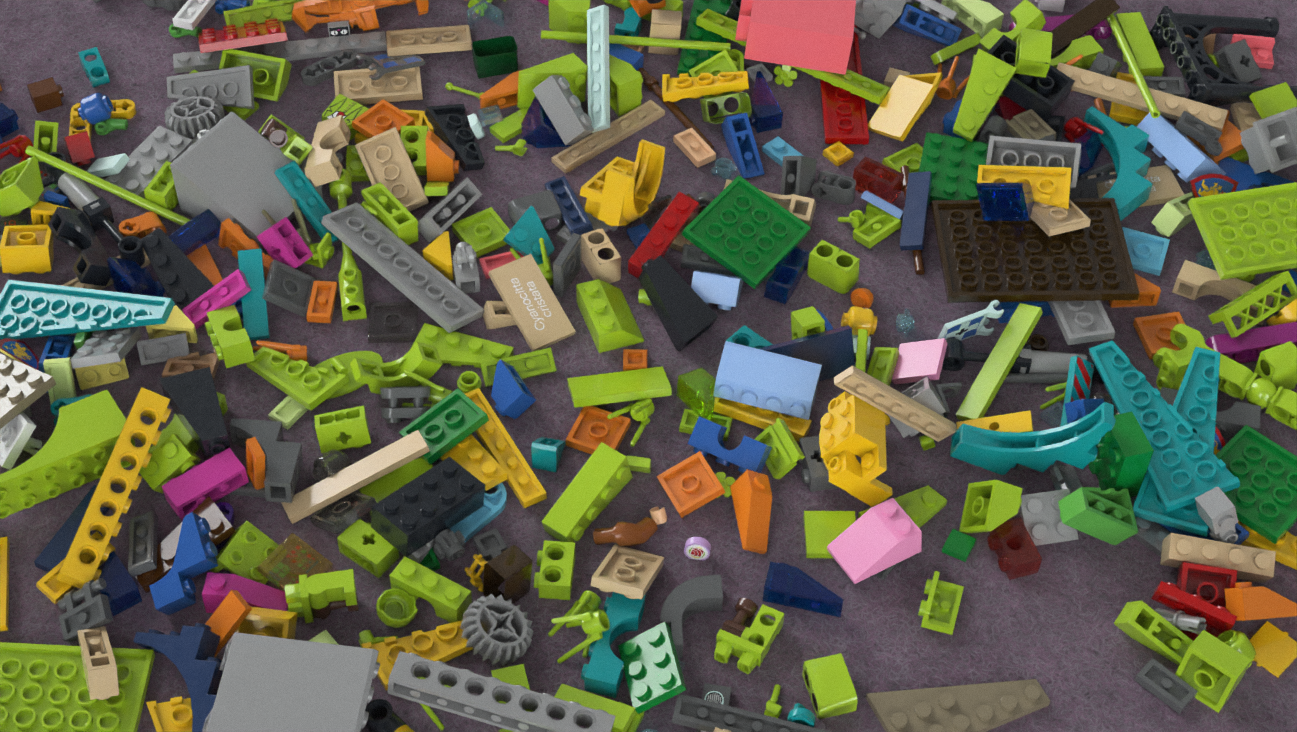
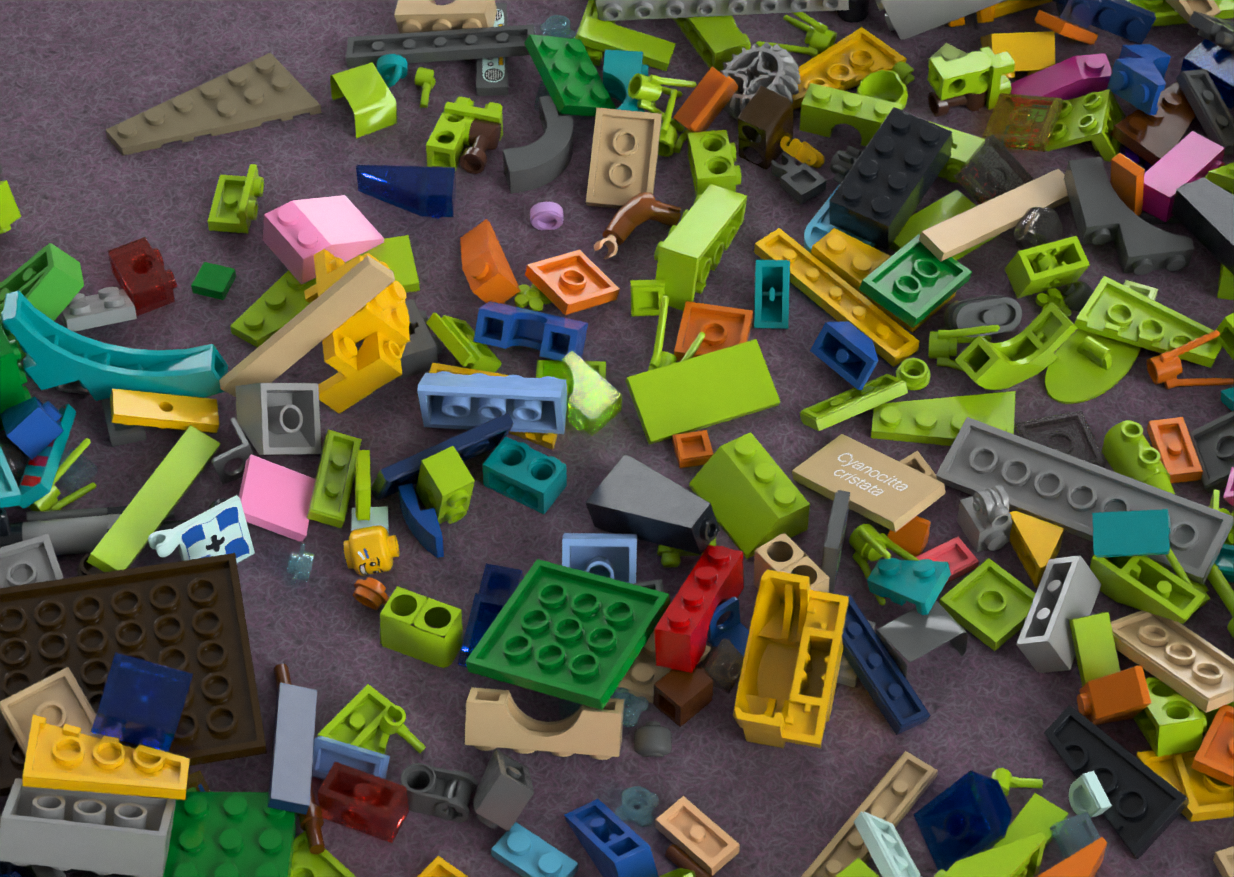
camera: 170 degrees right, 0 degrees up
(387, 222) = (1131, 533): none -> teal panel
(543, 604) = (706, 101): none -> orange panel
(563, 109) = (943, 818): light grey brick -> none
(989, 505) = (172, 296): lime slope -> none

